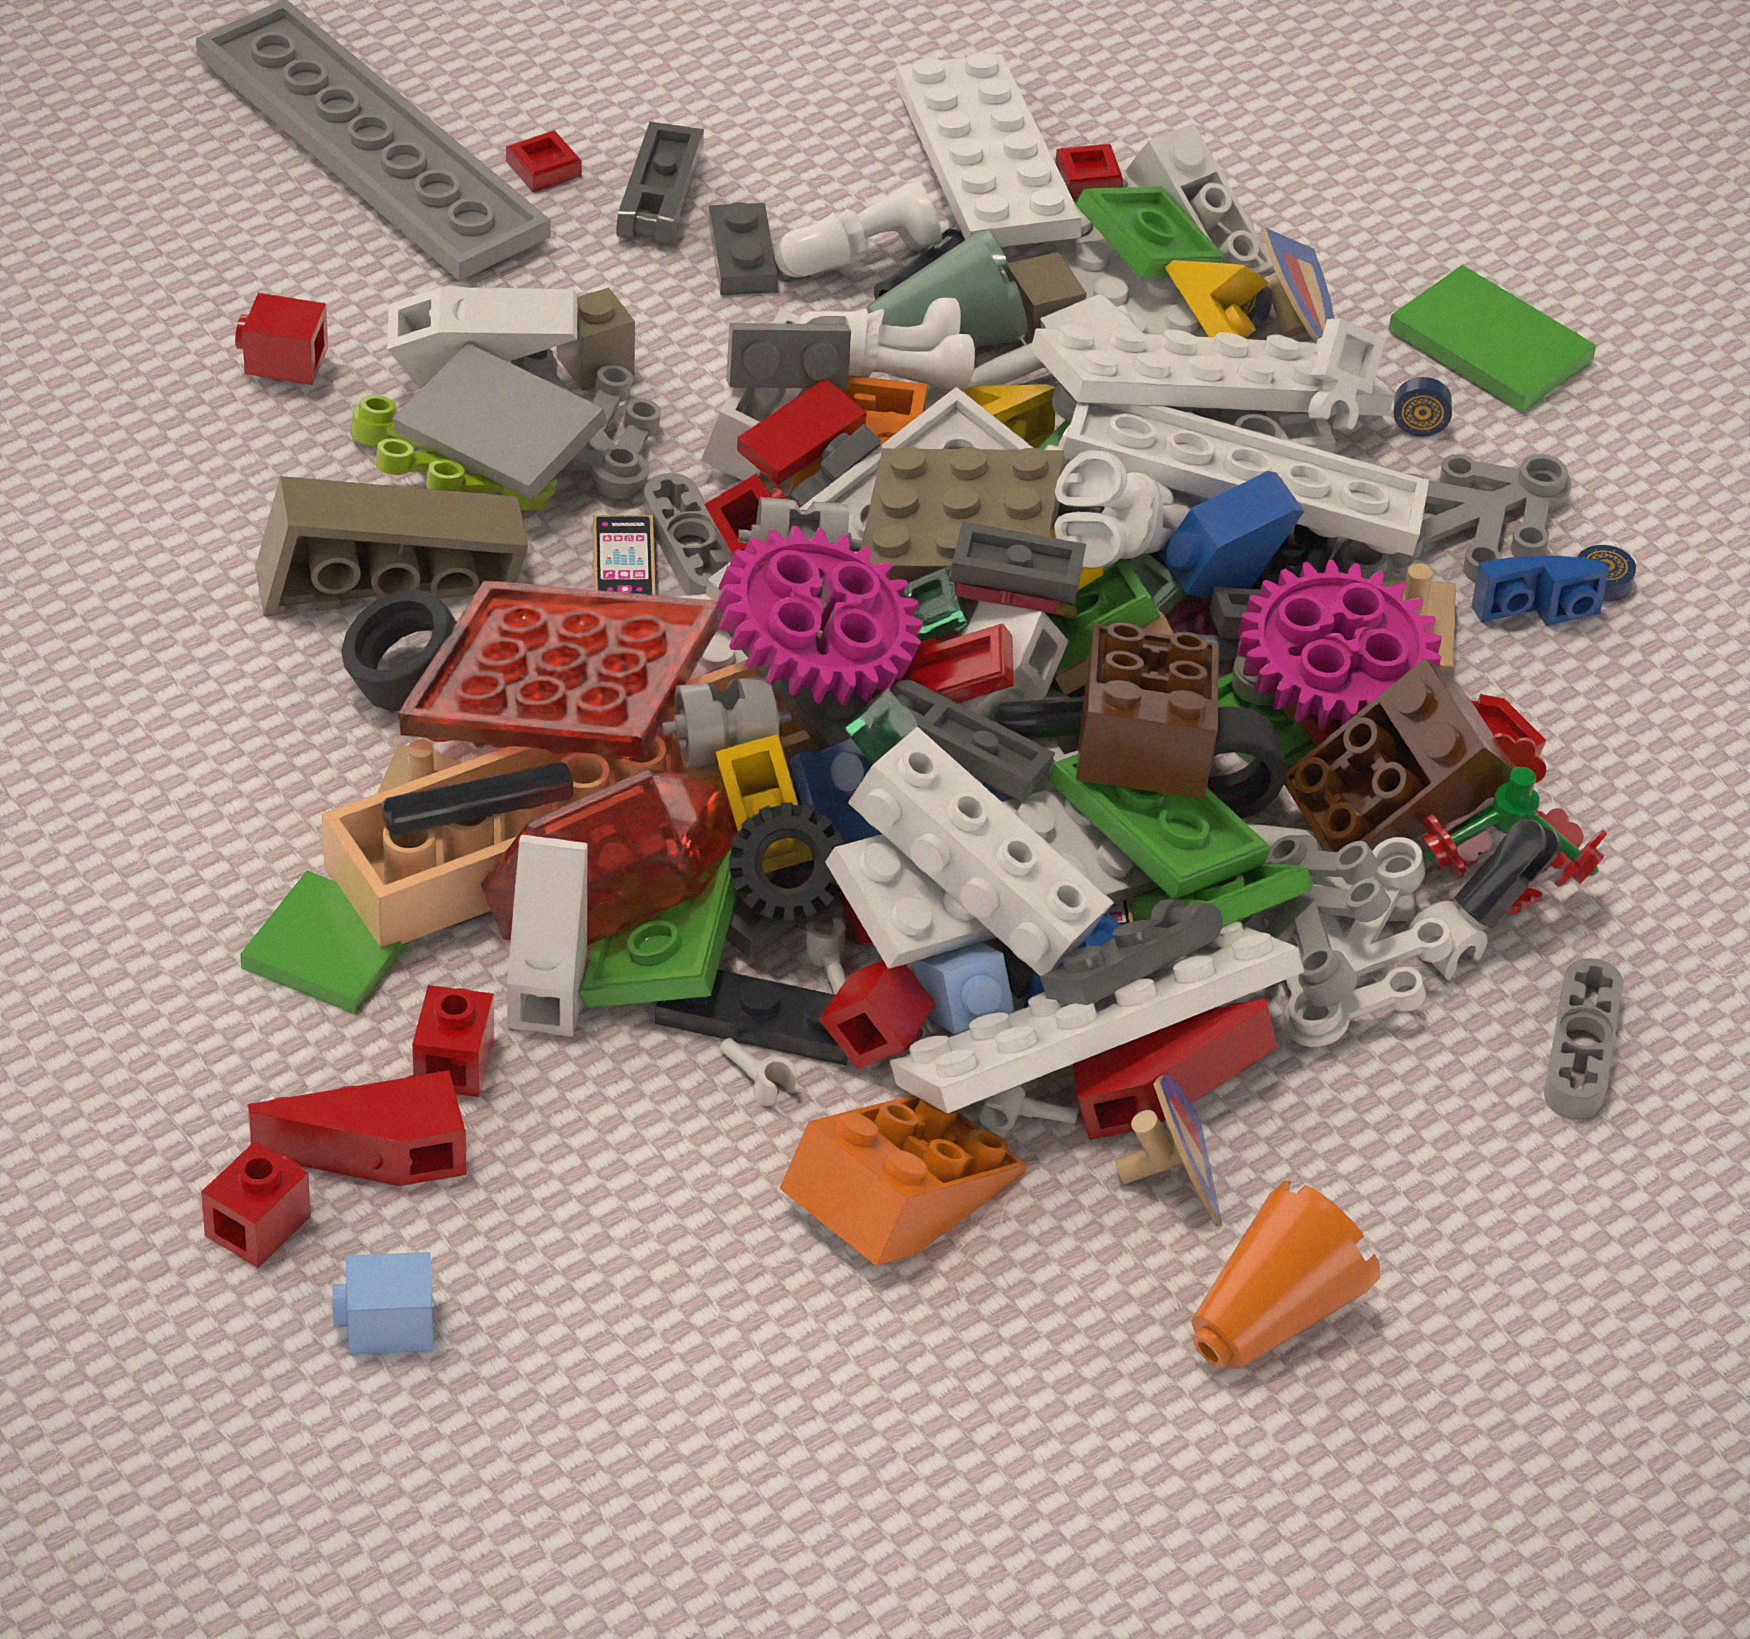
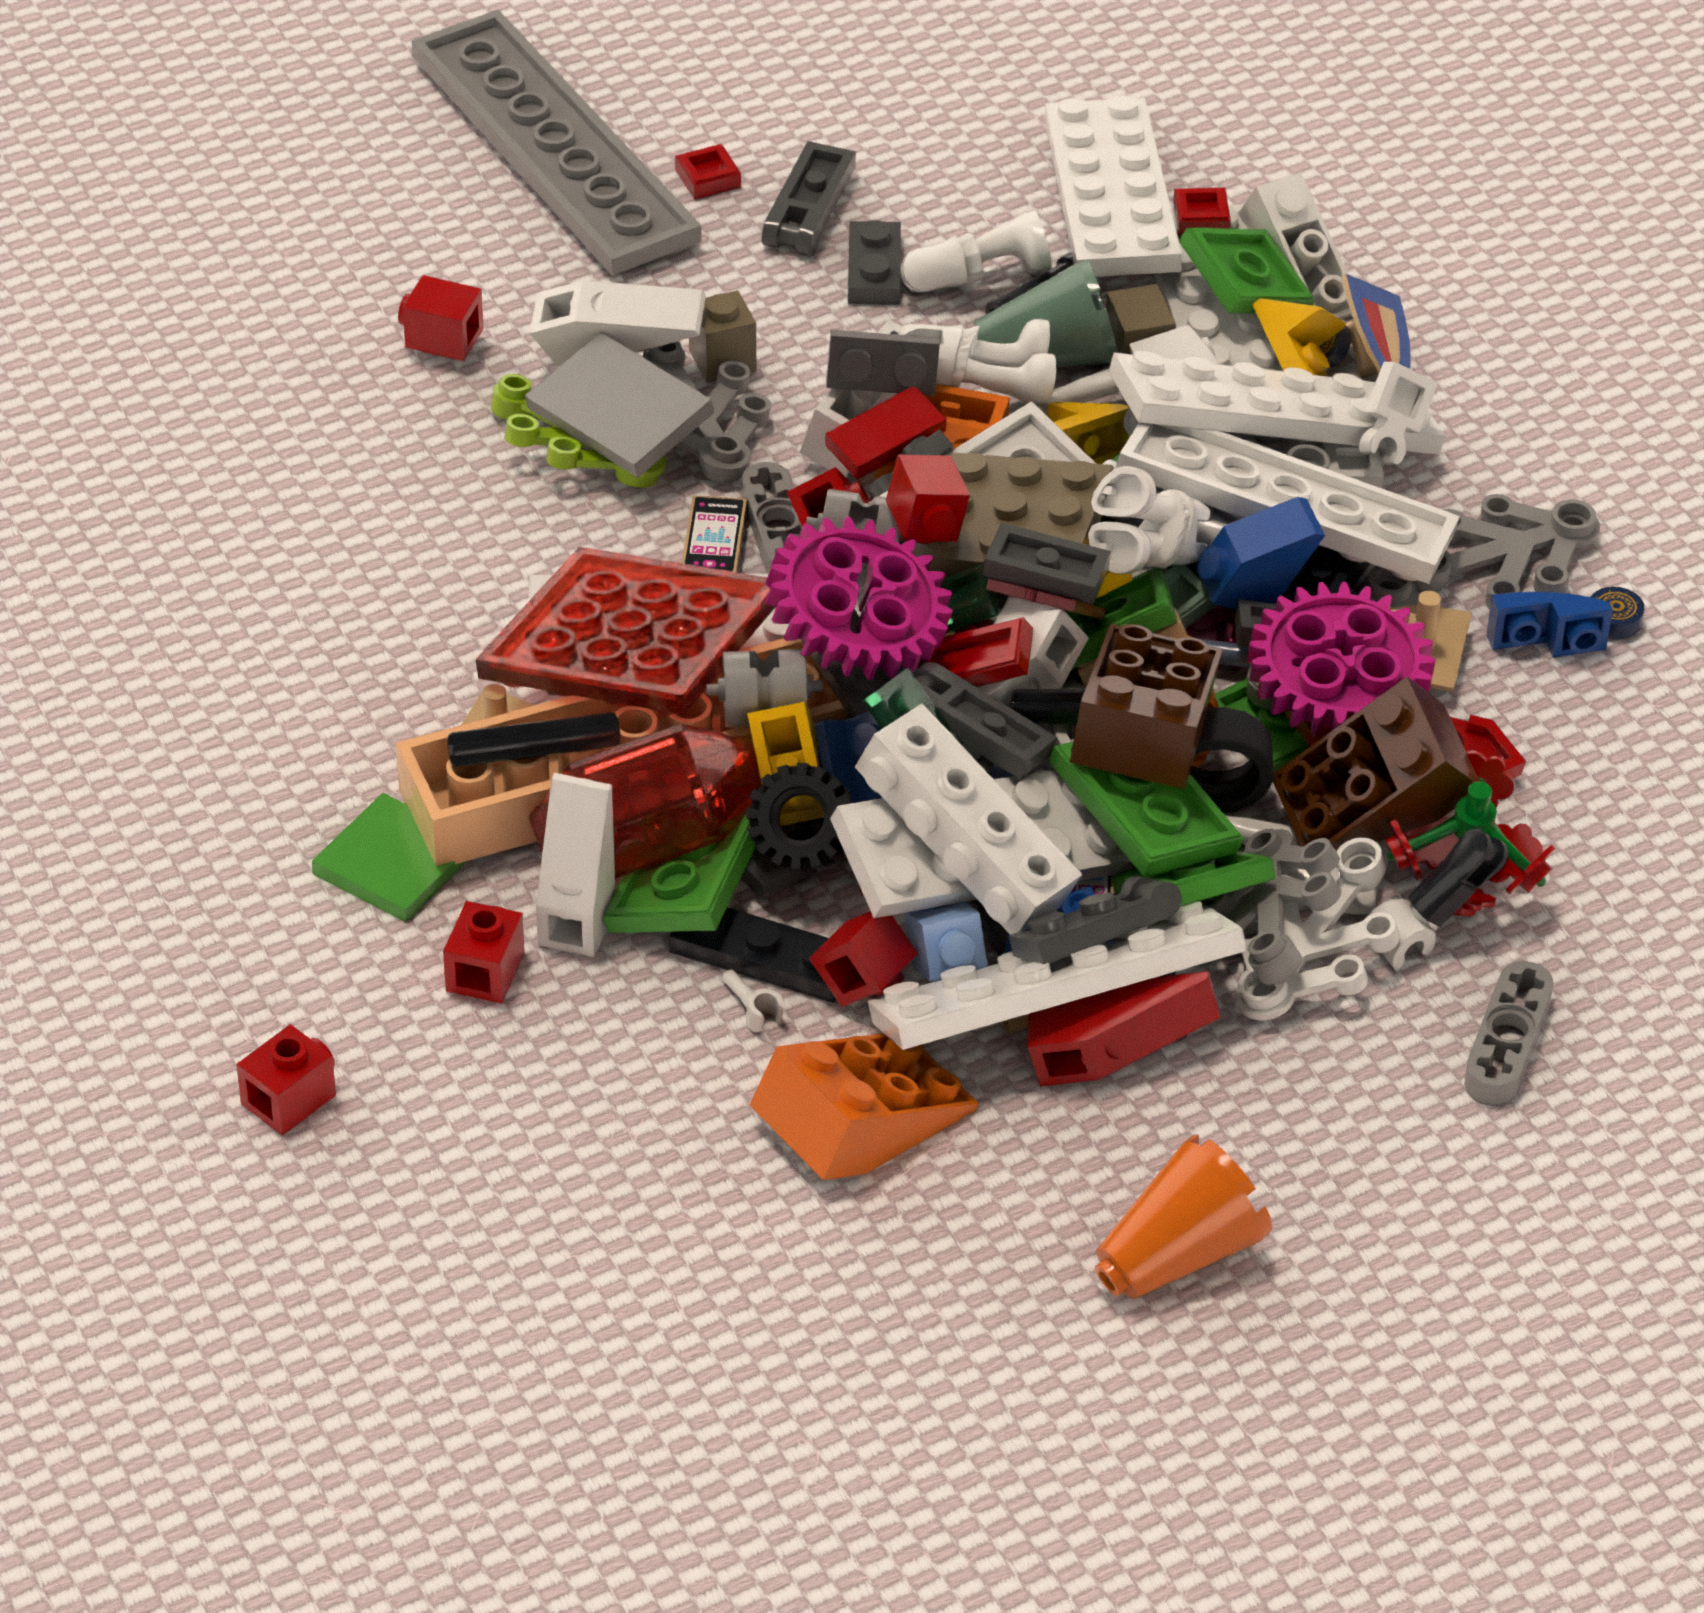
camera: 10 degrees right, 0 degrees up
(372, 1131) = (401, 1025): red slope -> none
(376, 539) = (498, 507): dark tan wedge -> none
(379, 629) = (481, 584): black tyre -> none
(386, 1303) = (385, 1175): light blue brick -> none
(828, 952) = (834, 899): white hand -> none
(877, 500) = (927, 498): none -> red brick
(1003, 1109) = (973, 1045): white hand -> none
(1163, 1153) = (1112, 1091): tan shield -> none
(1422, 406) = (1473, 448): dark blue tile -> none
(1492, 338) = (1554, 389): bright green tile -> none

